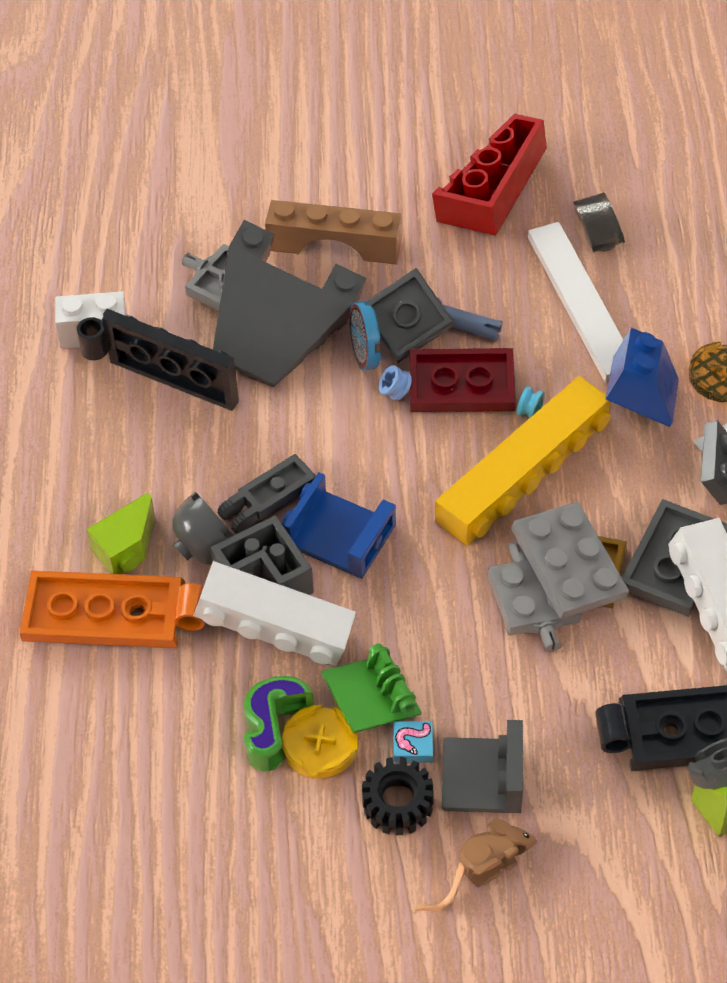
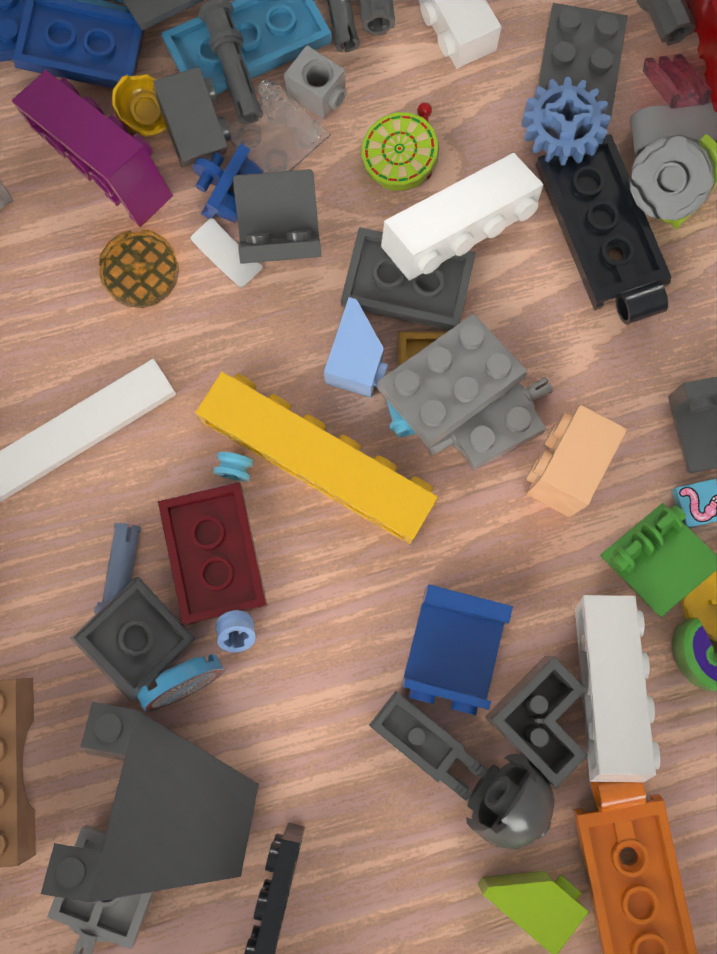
camera: 105 degrees left, 25 degrees up
(472, 629) = (576, 460): none -> light nougat brick
(614, 502) = (355, 354): none -> light blue slope
(644, 377) = (184, 344): blue slope -> none

